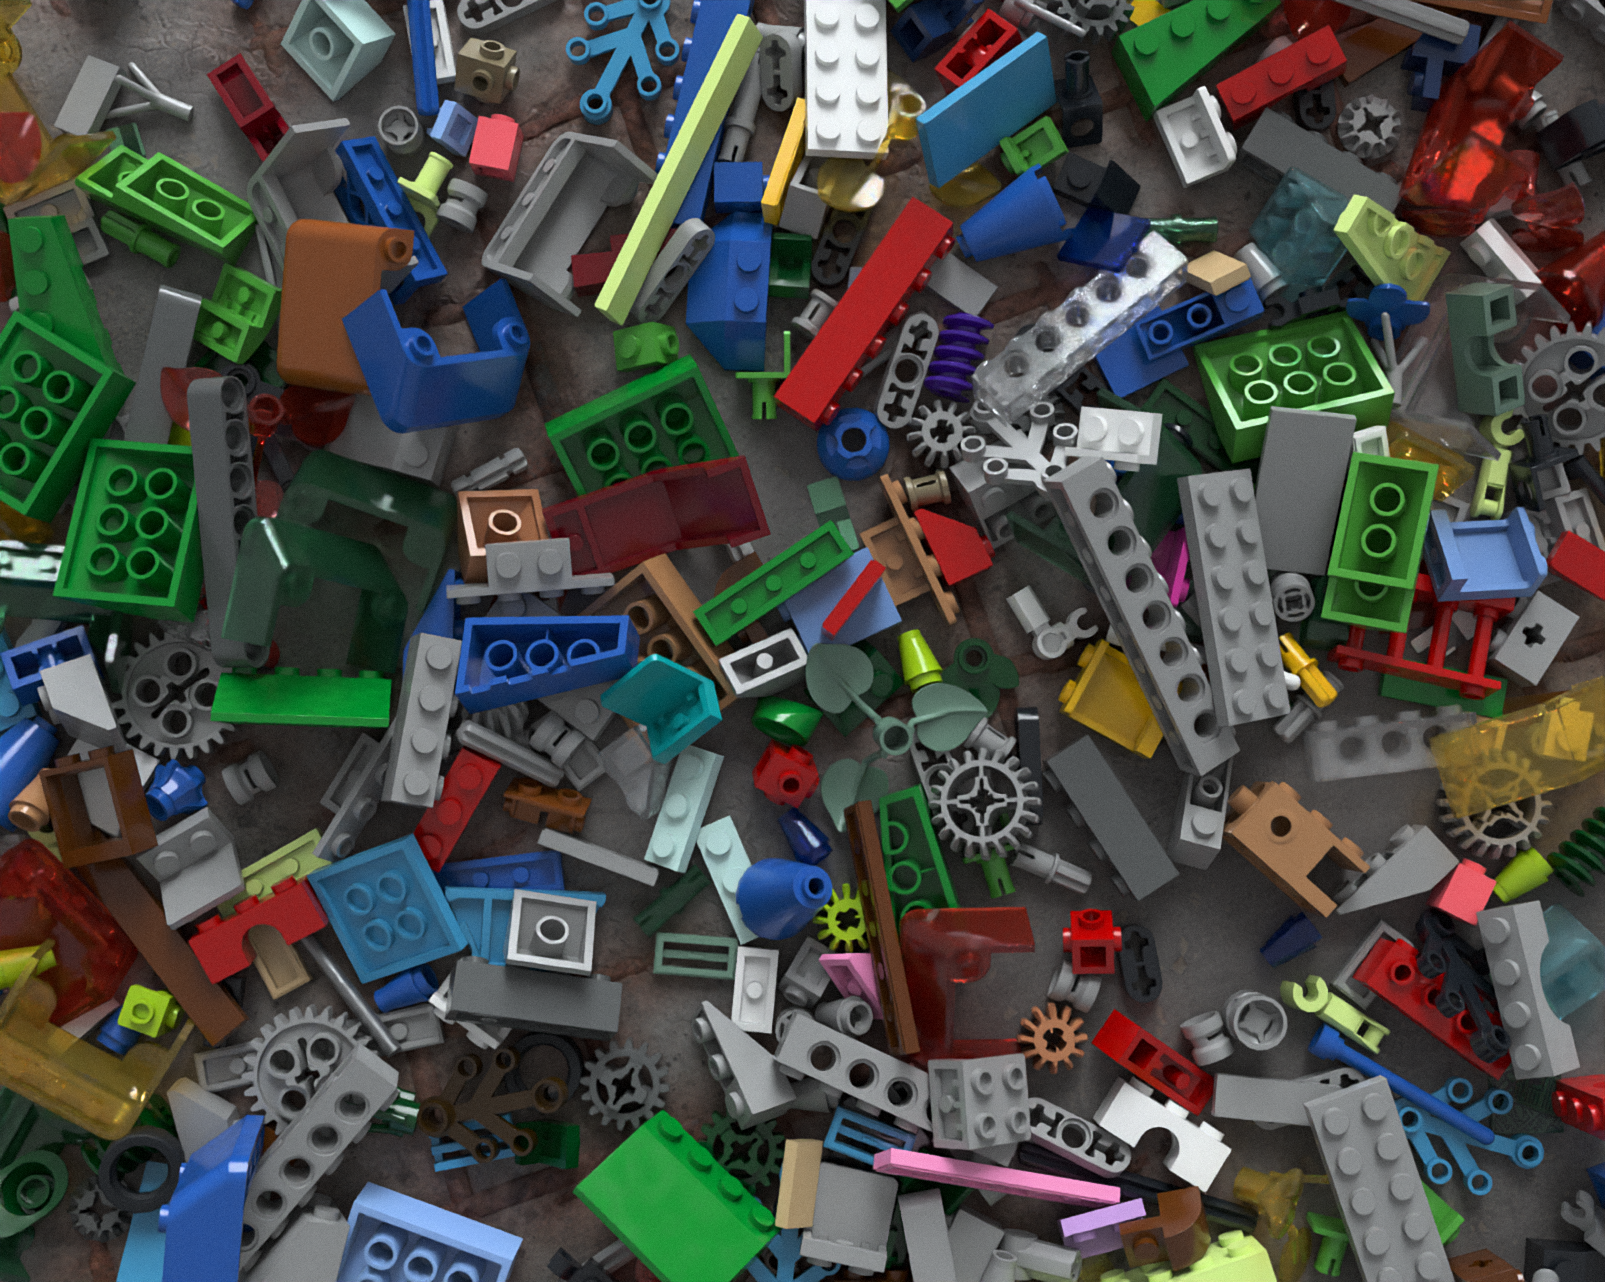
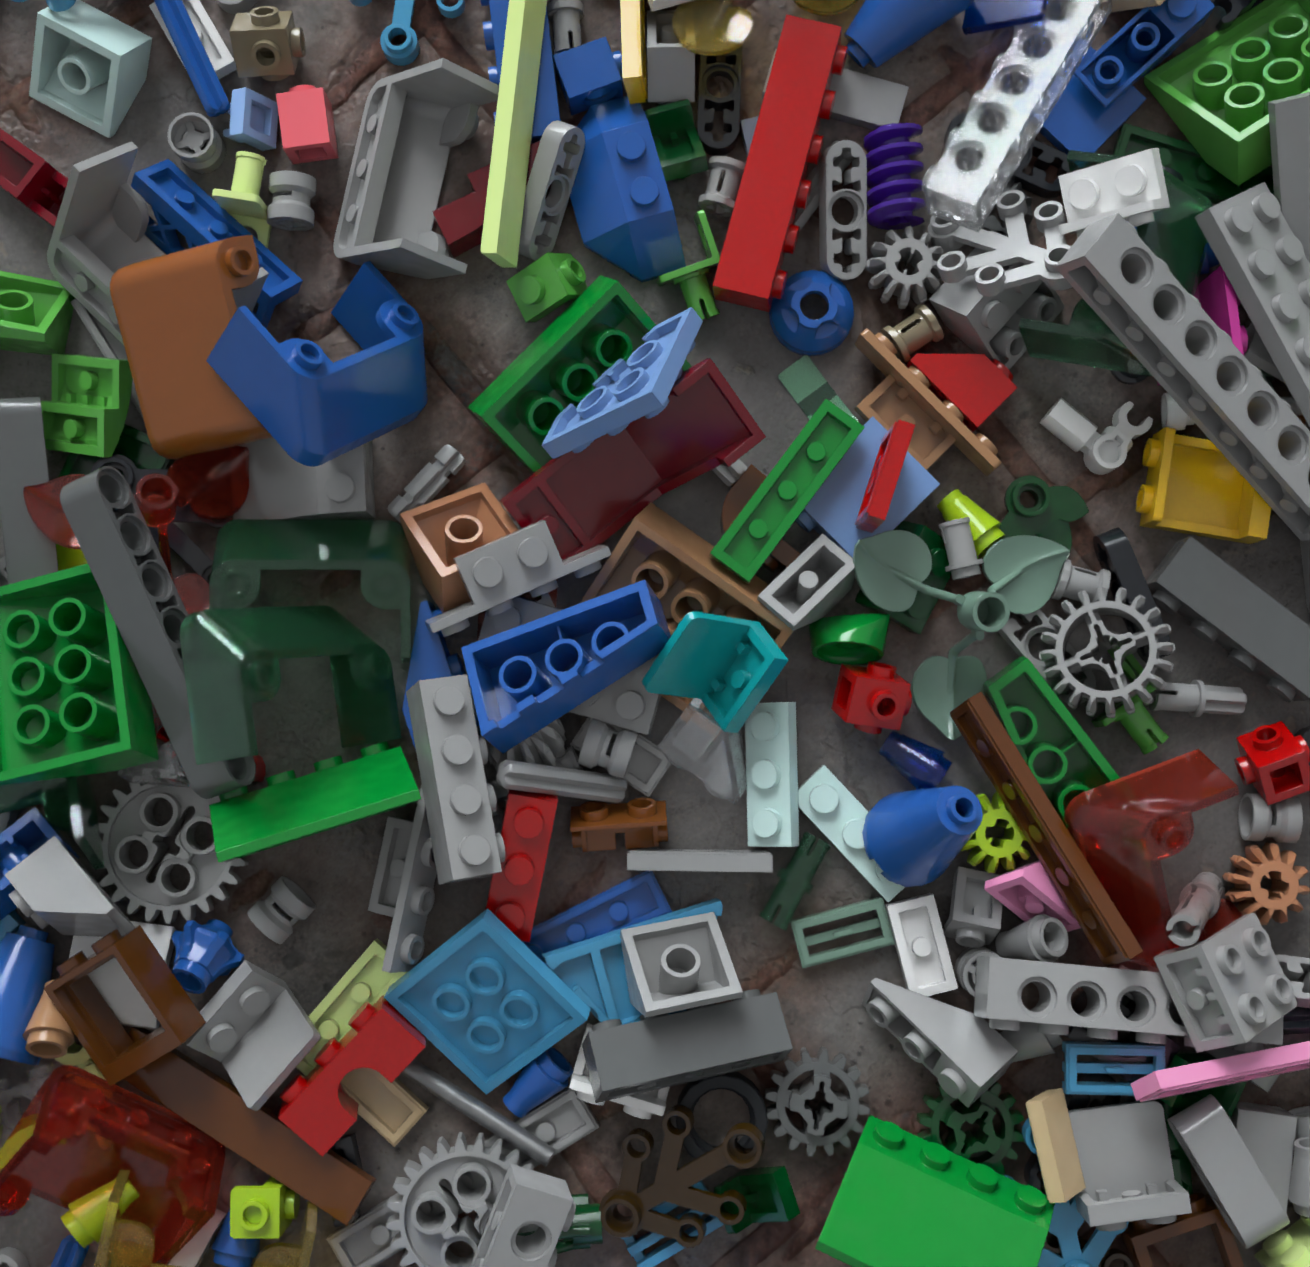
camera: 15 degrees left, 0 degrees up
(674, 457) = (628, 388): none -> medium blue plate
(899, 679) = (960, 549): none -> light grey pin
(984, 1032) = (1197, 904): none -> light grey pin

